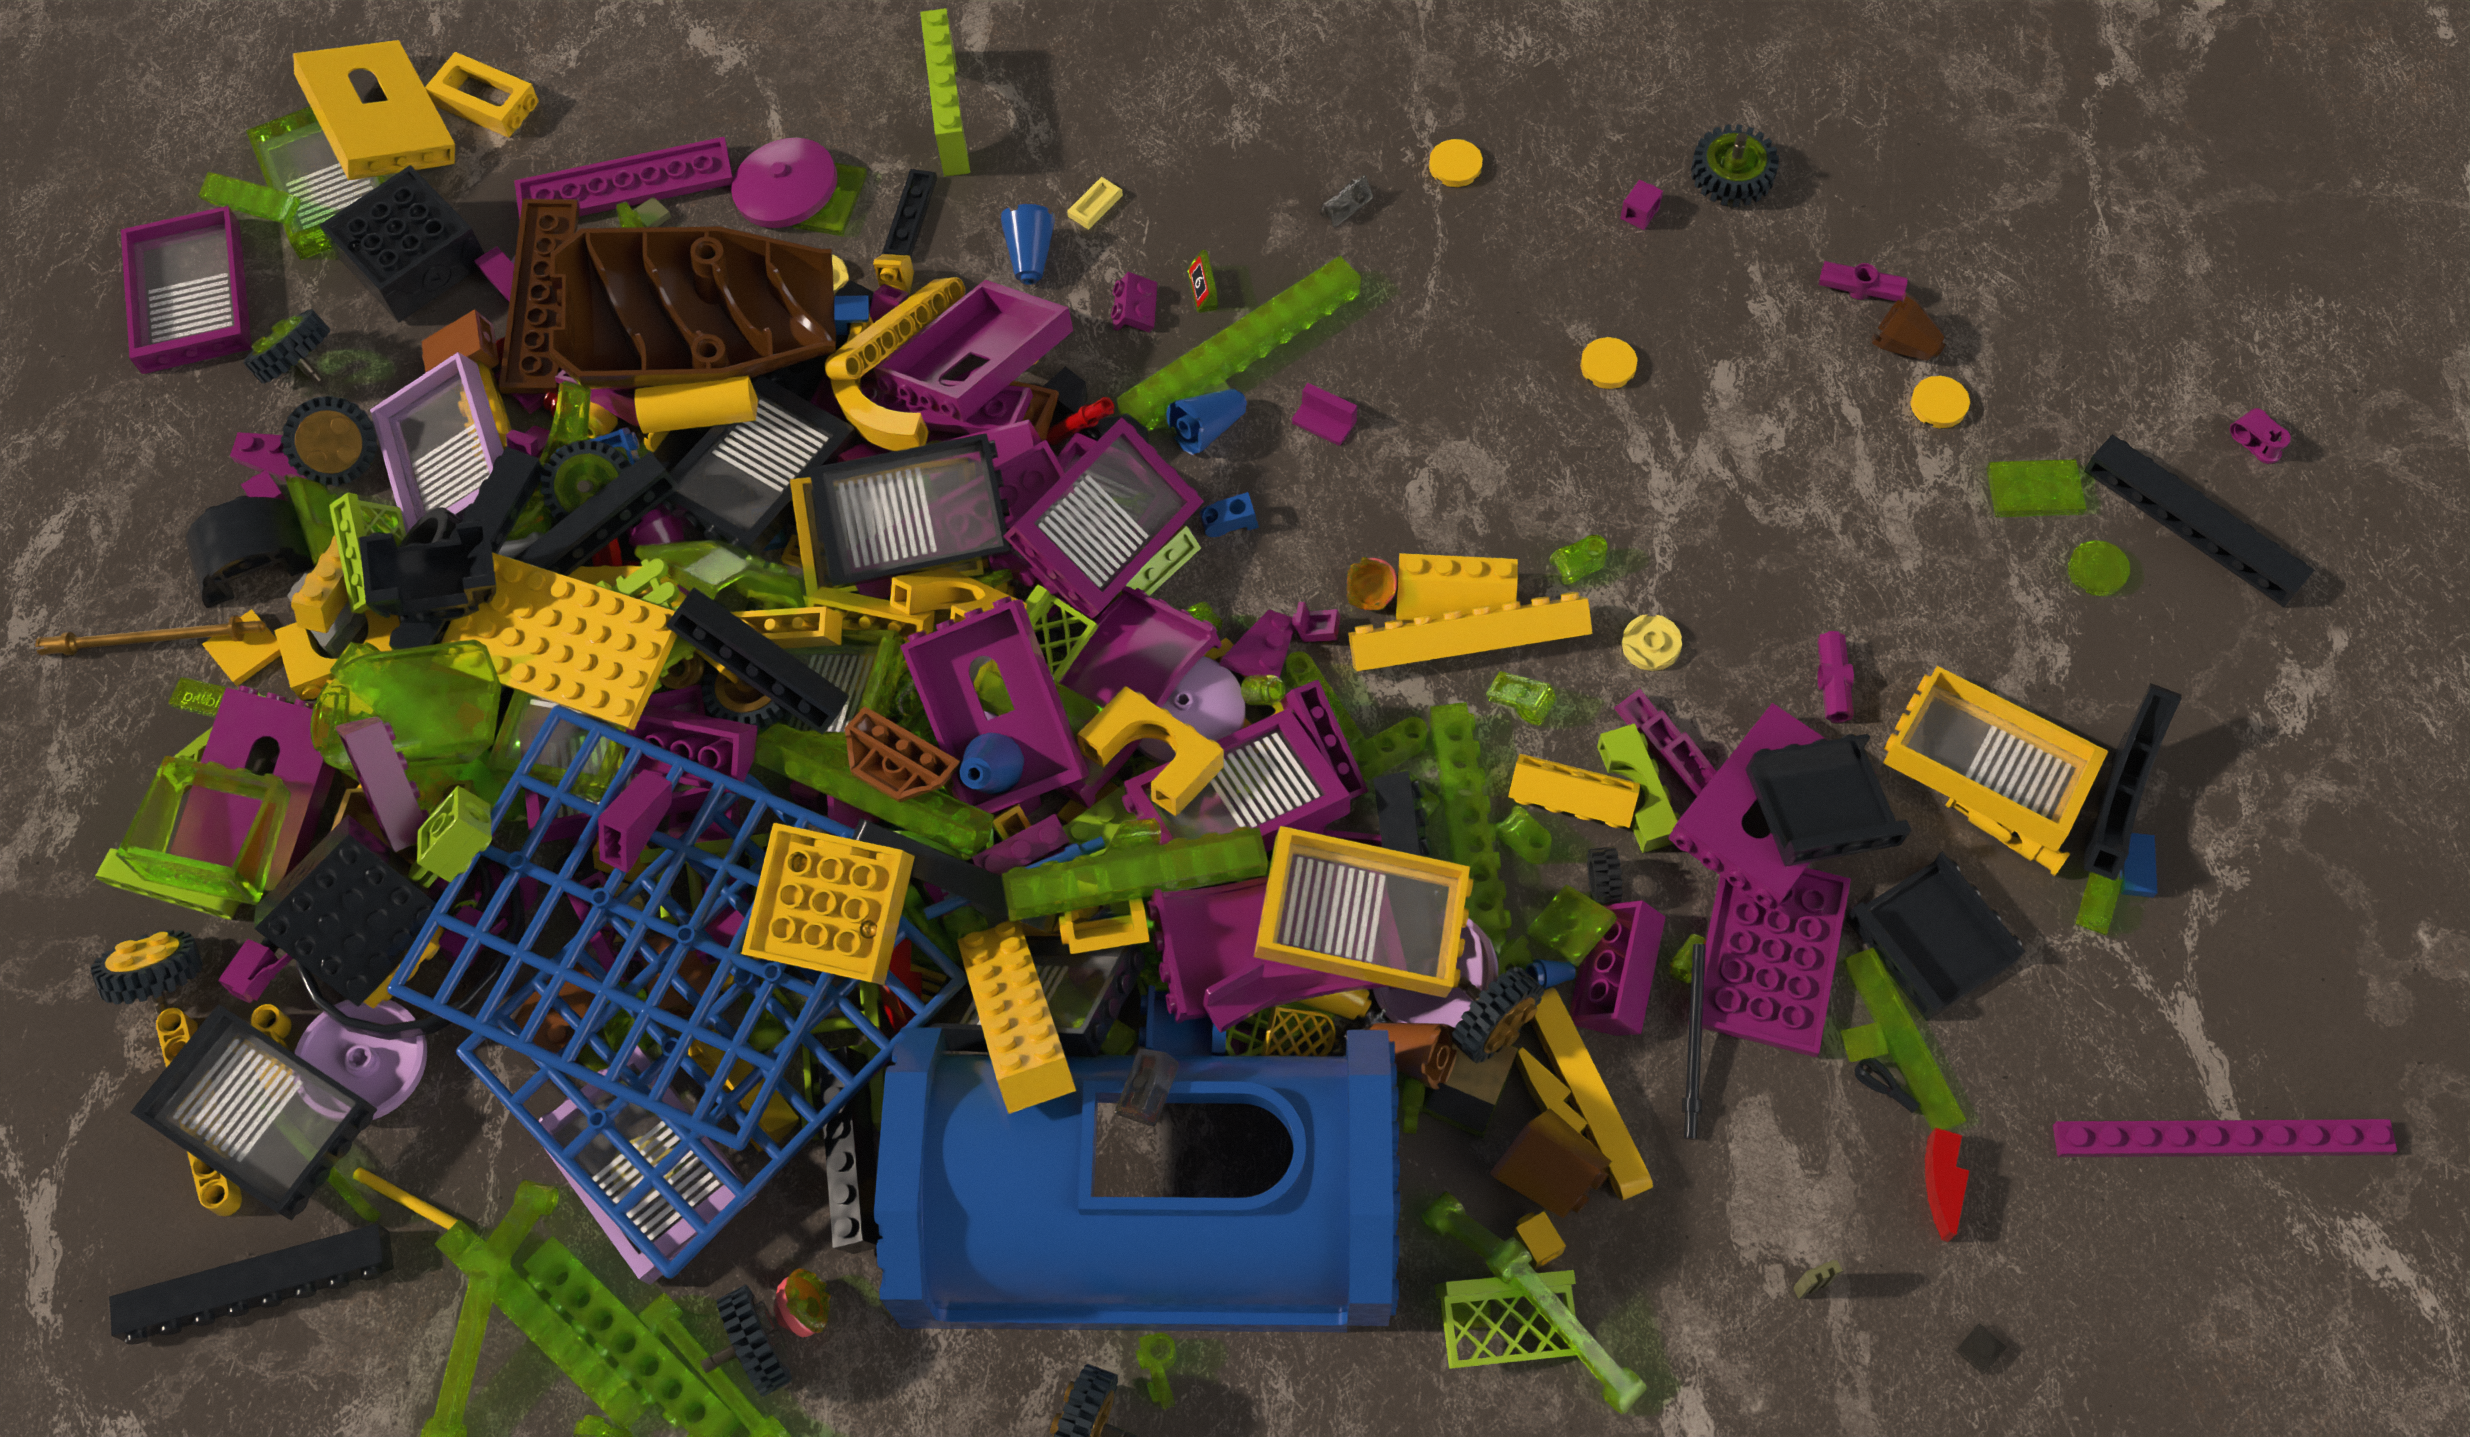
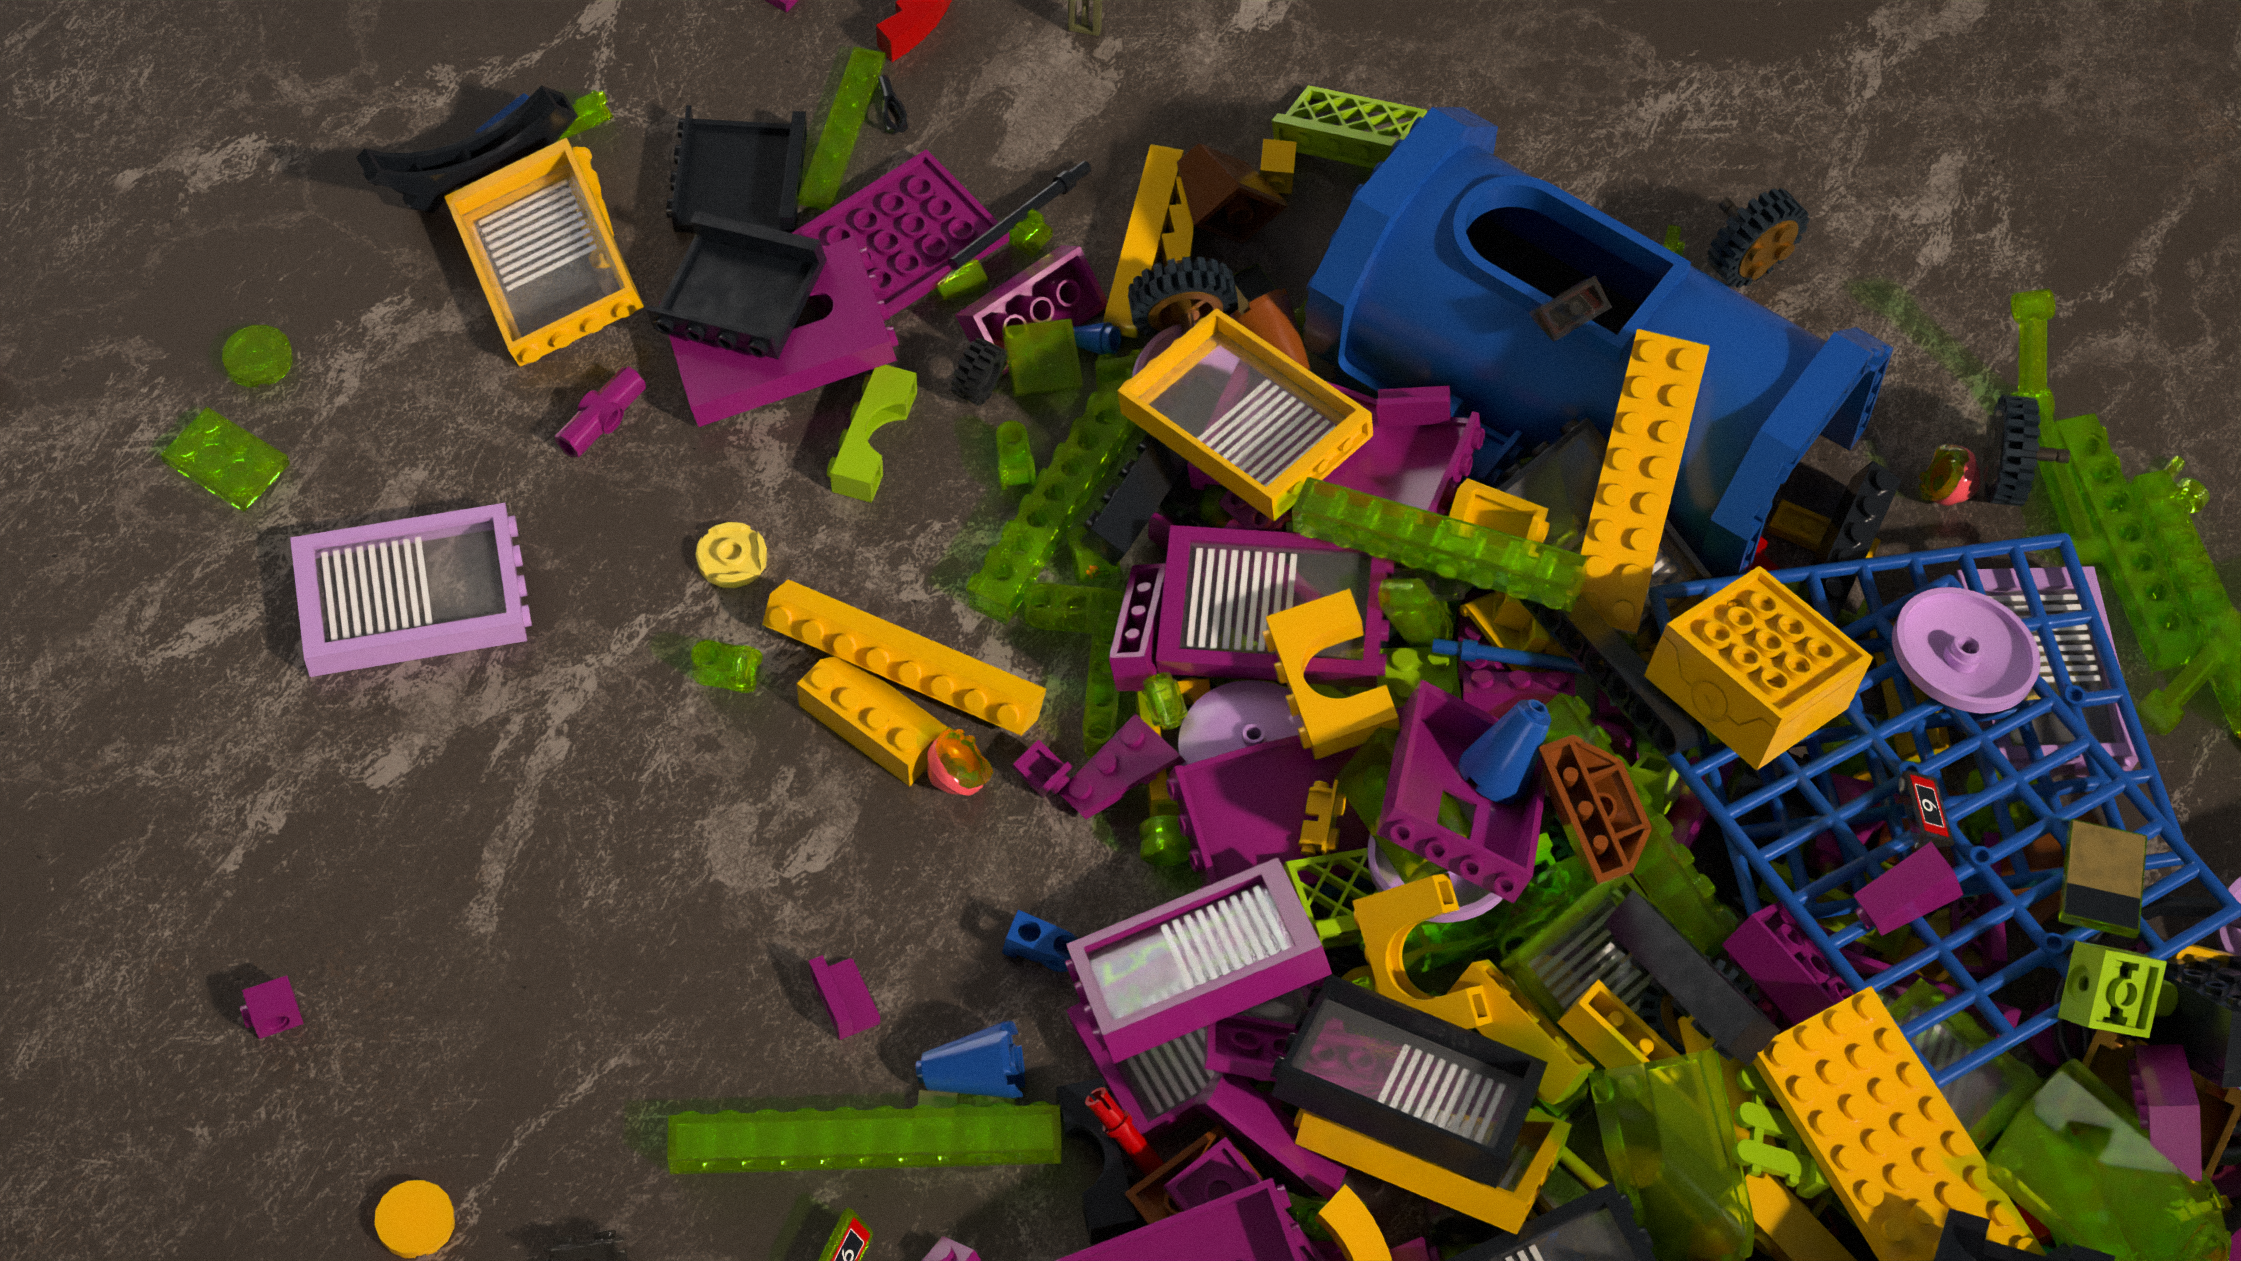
camera: 150 degrees left, 5 degrees down
(500, 936) = (2103, 878): none -> tile
(656, 905) = (1925, 810): none -> slope
(687, 1059) = (1966, 650): none -> lavender dish
(1089, 666) = (1326, 805): none -> yellow hinge
(1510, 1263) = (1325, 125): clear neon green piece -> none
(1528, 696) = (905, 571): clear neon green plate -> none
(1574, 791) = (938, 458): yellow brick -> none
(1608, 362) = (491, 856): yellow tile -> none
(1666, 742) = (808, 456): magenta slope -> none
(1675, 1040) = (1031, 233): none -> clear neon green tile
(1734, 165) = (128, 978): wheel -> none
(1825, 477) = (409, 589): none -> window
(1862, 281) = (159, 770): magenta piece -> none
(1864, 1042) = (880, 135): clear neon green panel -> none
(1909, 331) = (171, 673): reddish brown cone -> none
(1940, 401) = (214, 594): yellow tile -> none
(2198, 520) = (124, 333): black brick -> none

